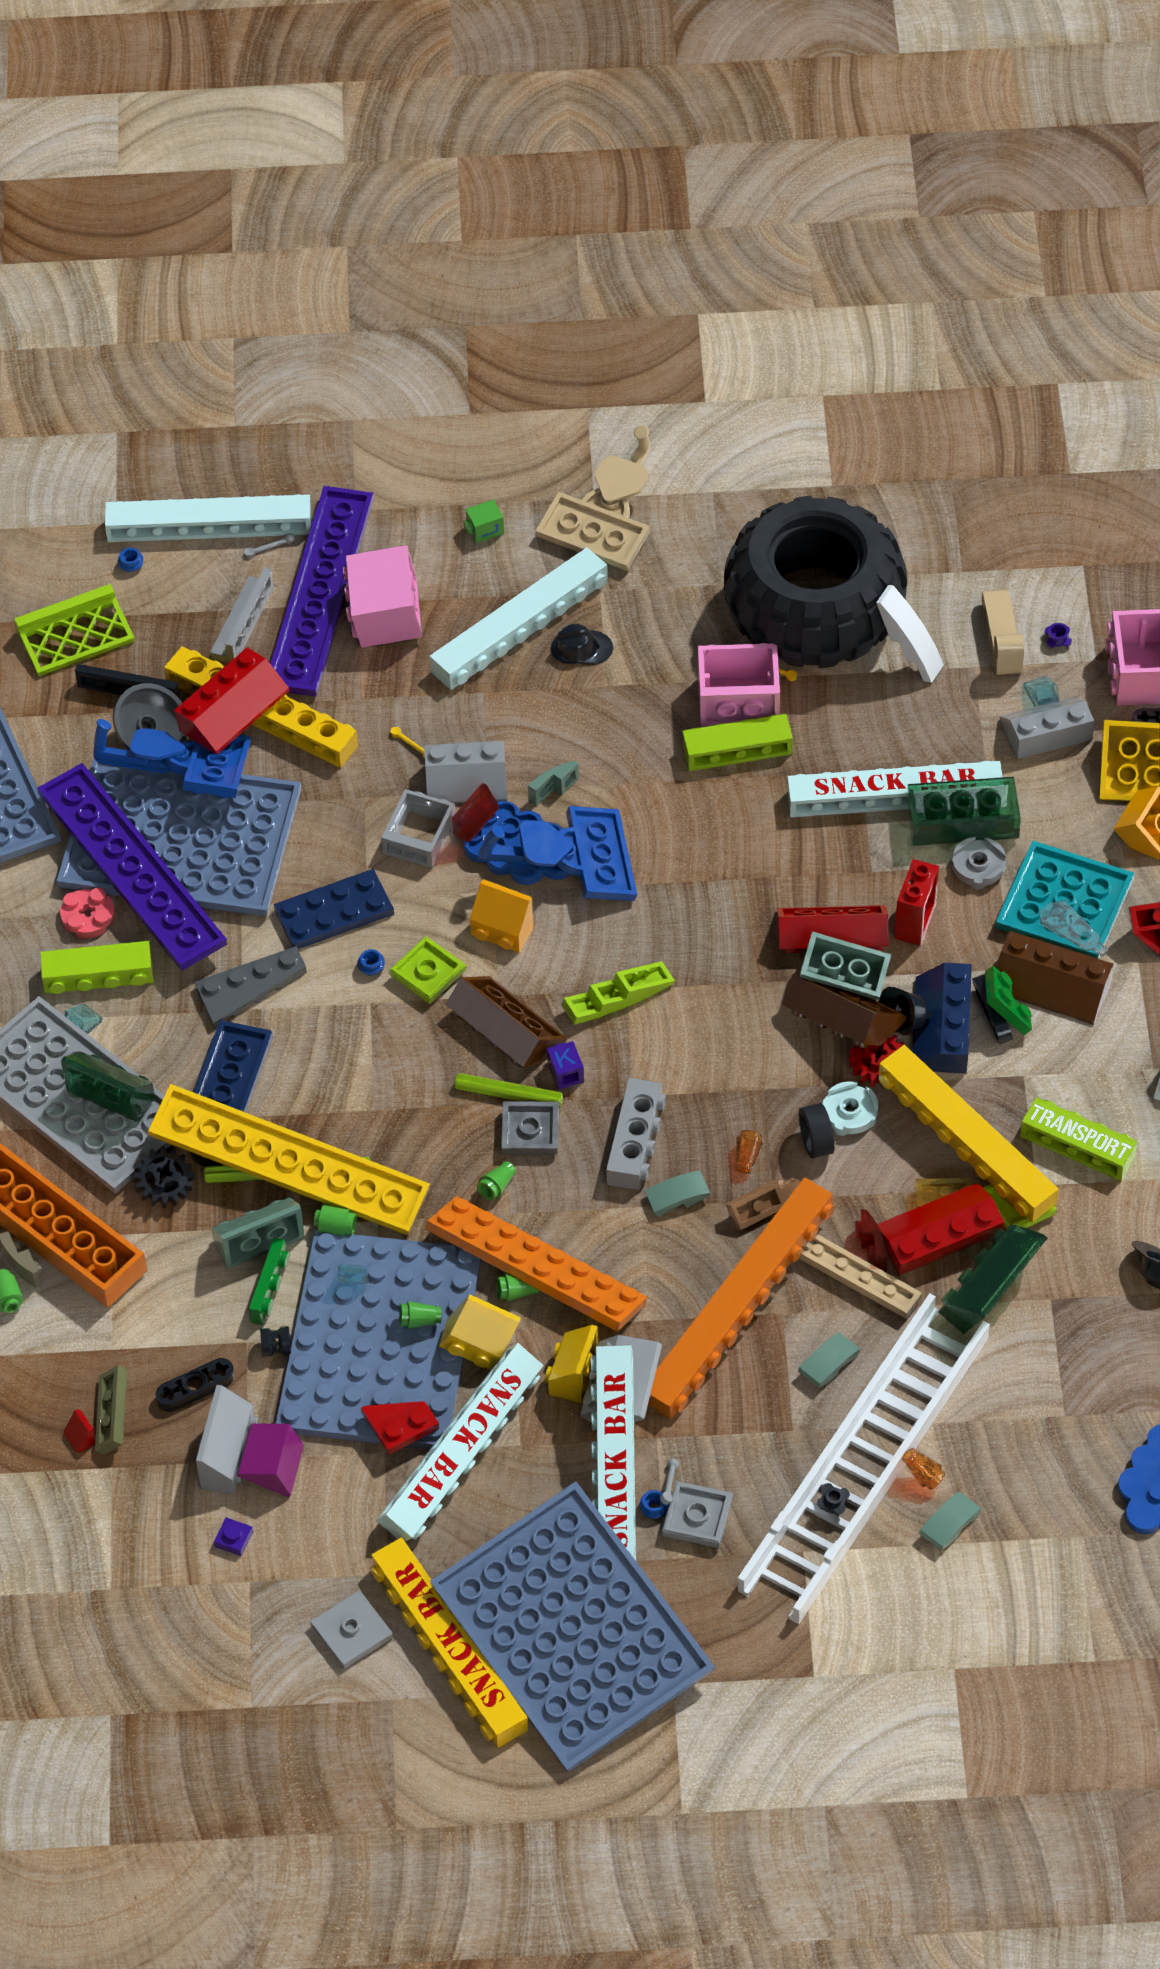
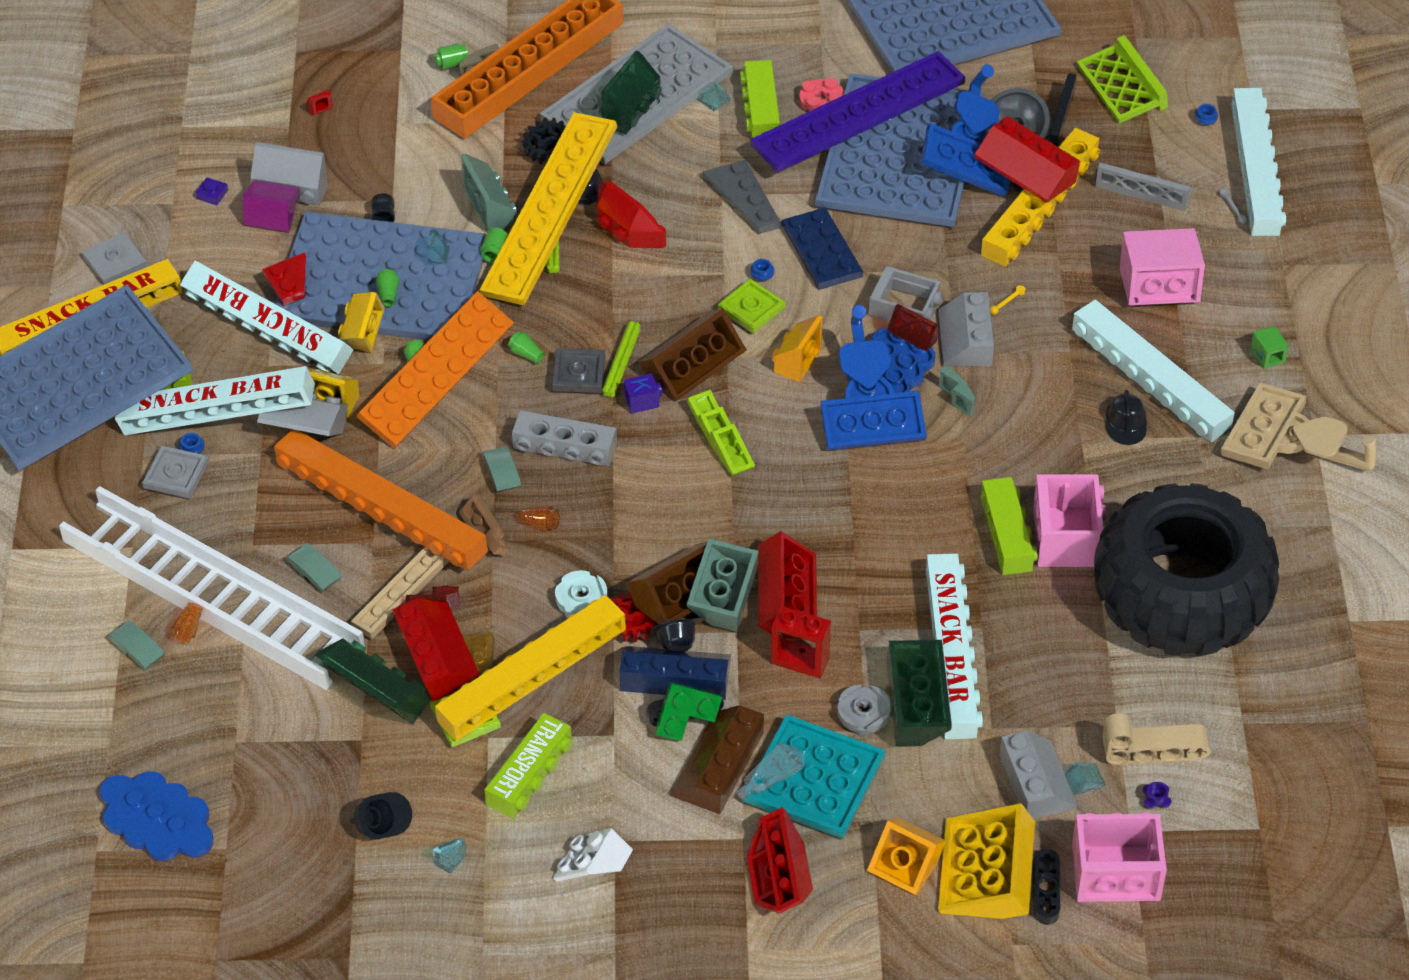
camera: 90 degrees right, 5 degrees down
(110, 1410) = (333, 118): olive plate -> none
(199, 1373) = (353, 159): black beam -> none
(234, 1064) = (654, 181): dark blue plate -> none
(269, 1281) = (441, 204): green plate -> none
(294, 1091) = (627, 218): none -> red wedge
(319, 588) = (1217, 240): dark purple plate -> none
(666, 1497) = (189, 446): light grey hinge -> none
(816, 1130) = (548, 548): black tyre -> none
(833, 1507) = (168, 564): black plate -> none
(908, 629) = (1124, 643): white slope -> none

